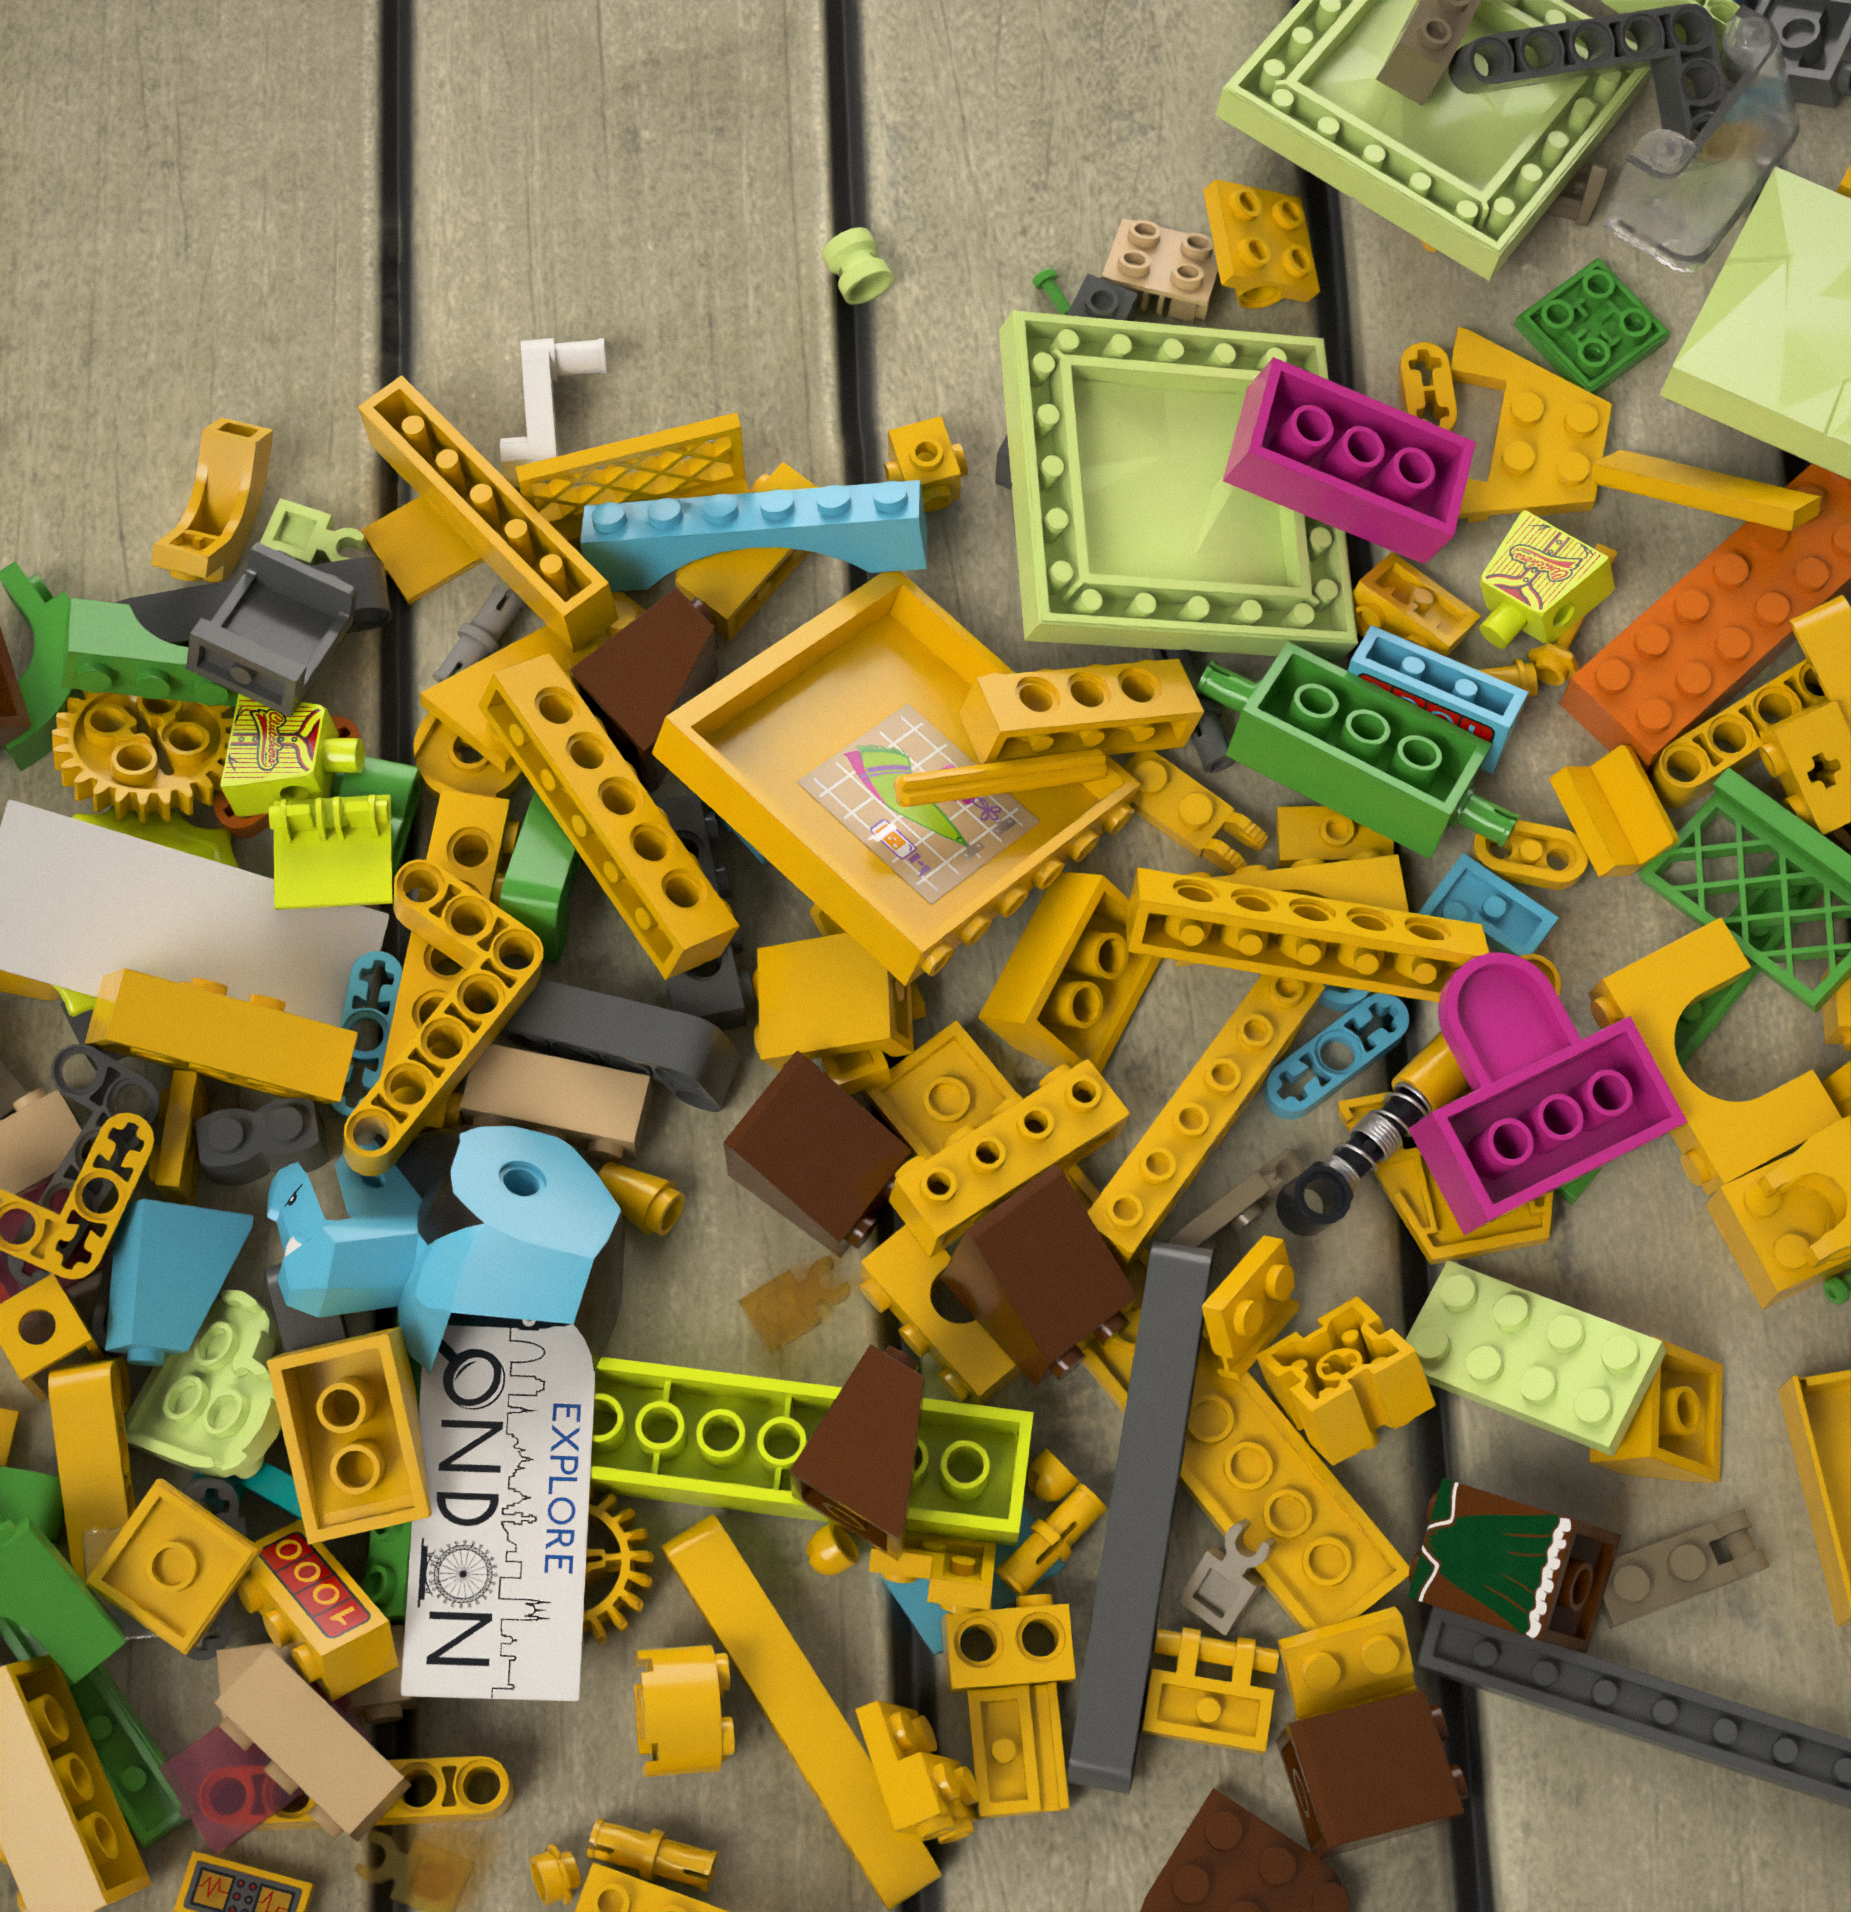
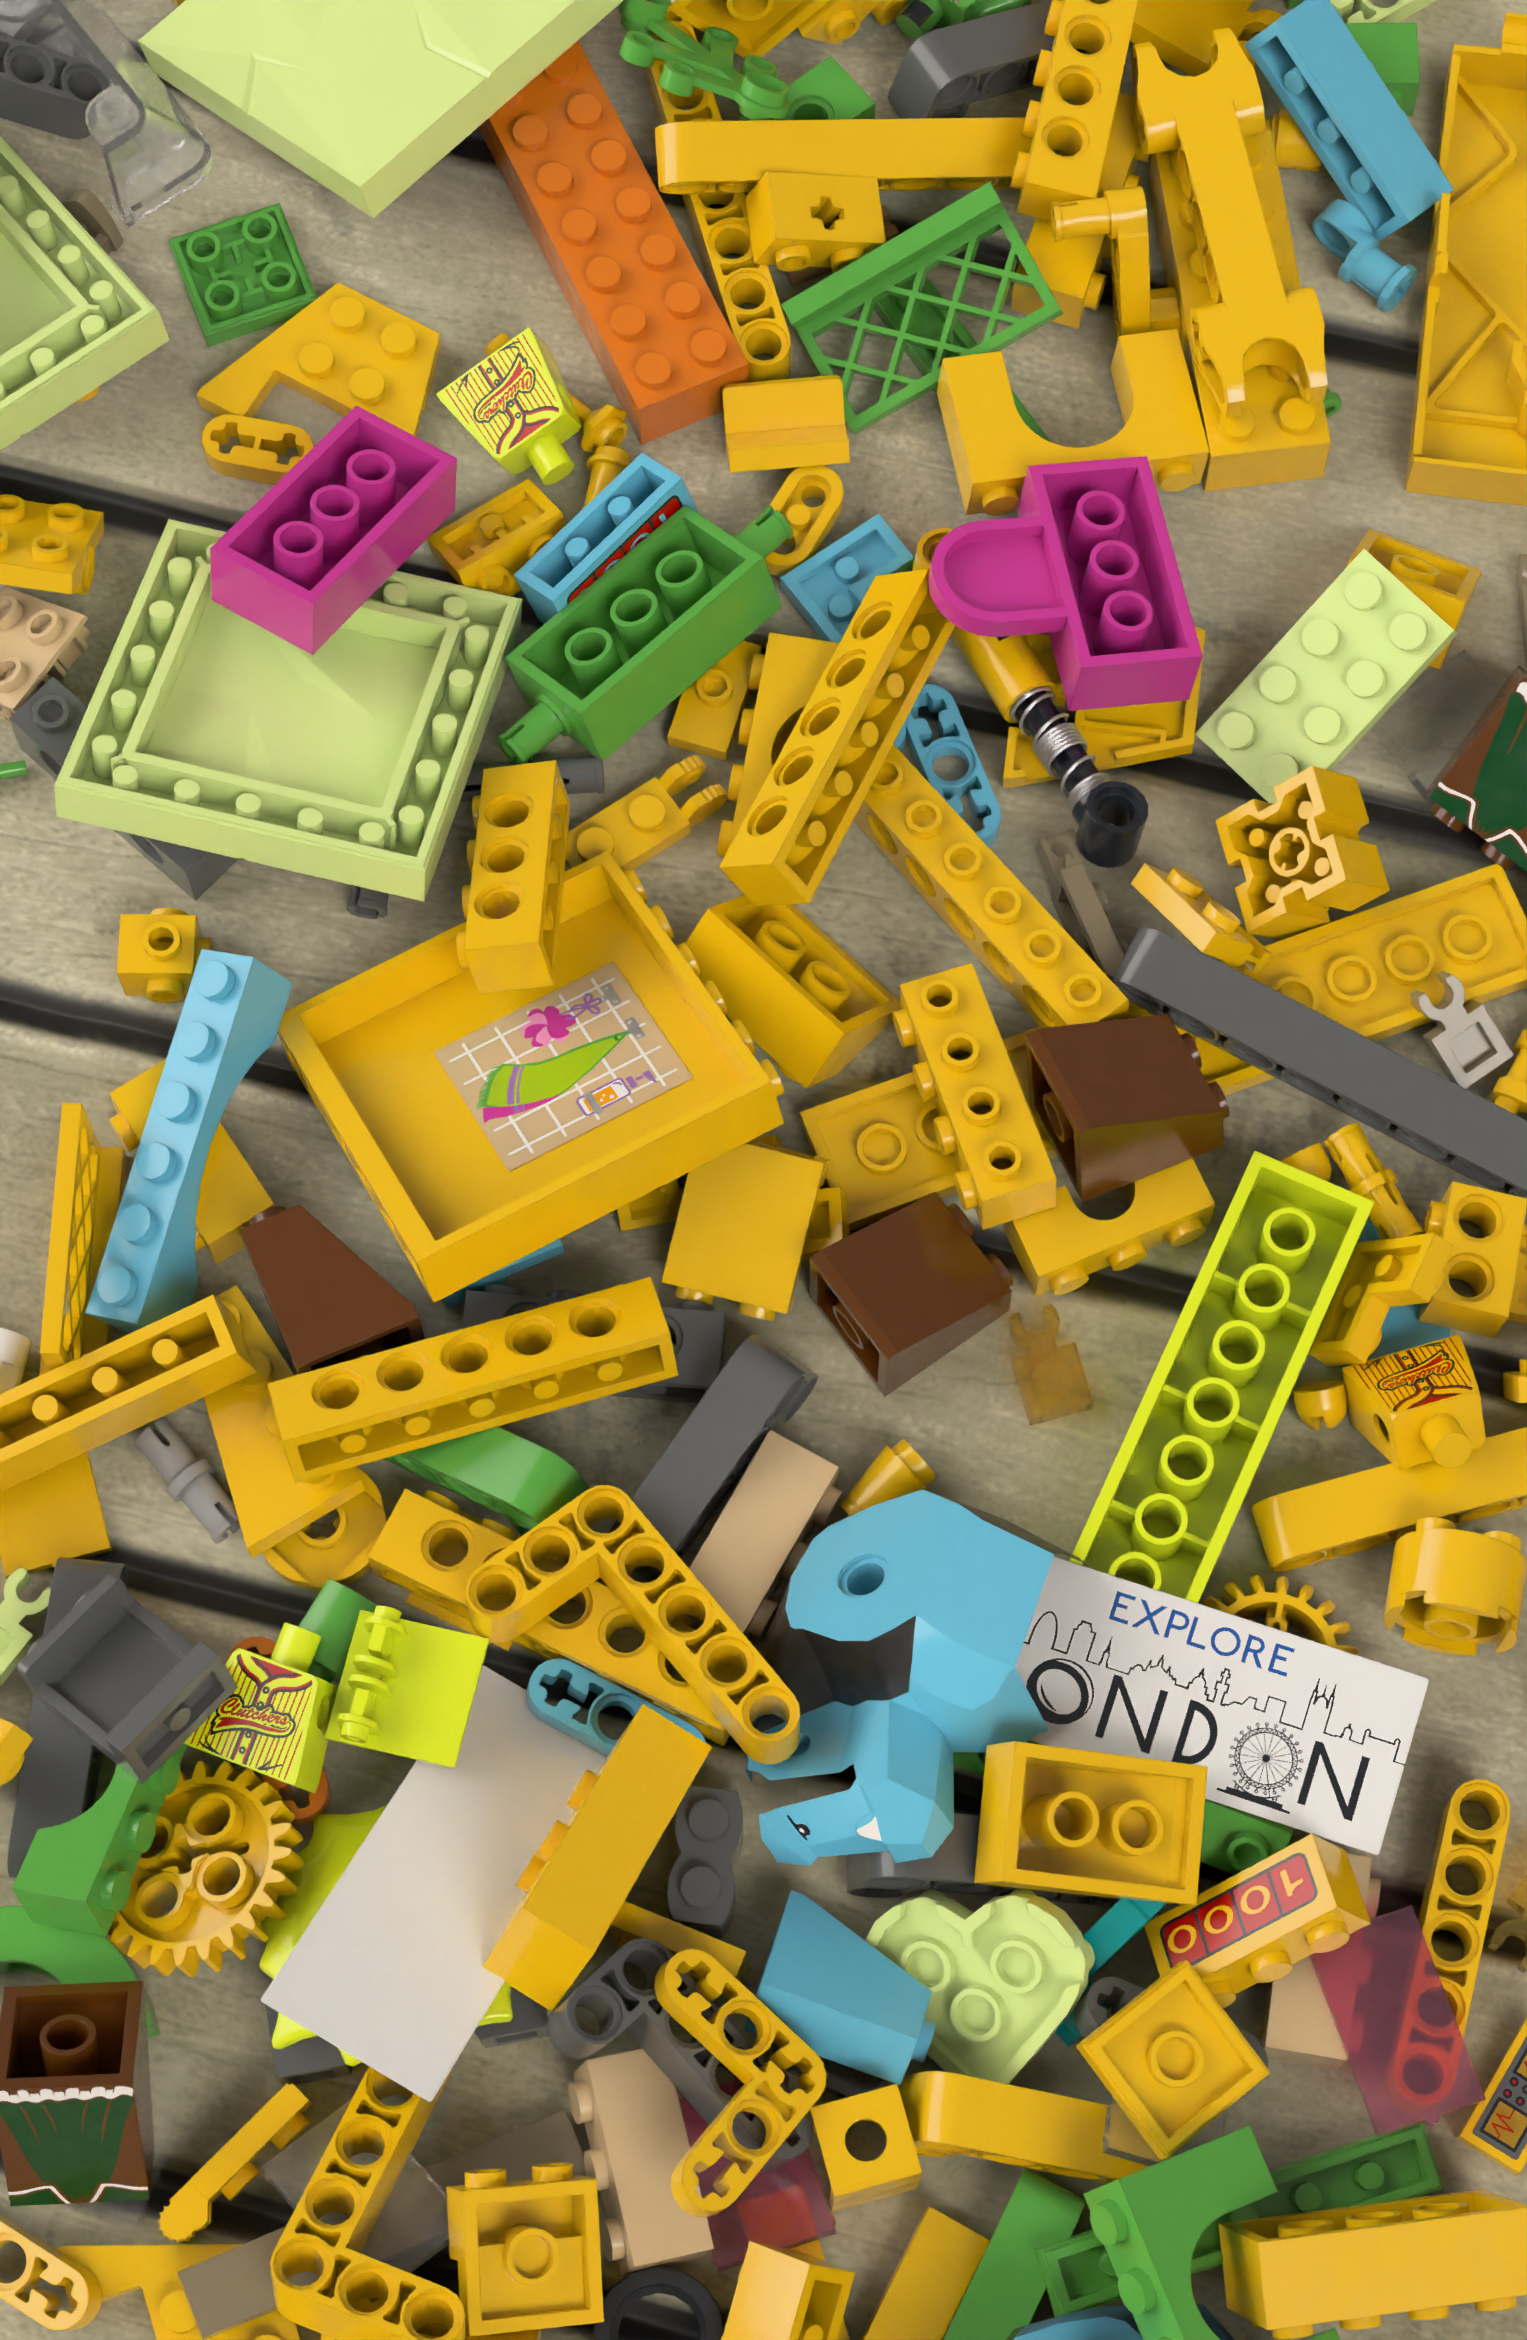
camera: 70 degrees left, 0 degrees up
(310, 1747) = (1409, 1960): tan brick -> none
(848, 1636) = (1418, 1404): none -> yellow torso
(866, 1450) = (1270, 1301): reddish brown slope -> none
(1000, 777) = (574, 969): yellow axle -> none
(1706, 490) = (482, 219): yellow tile -> none

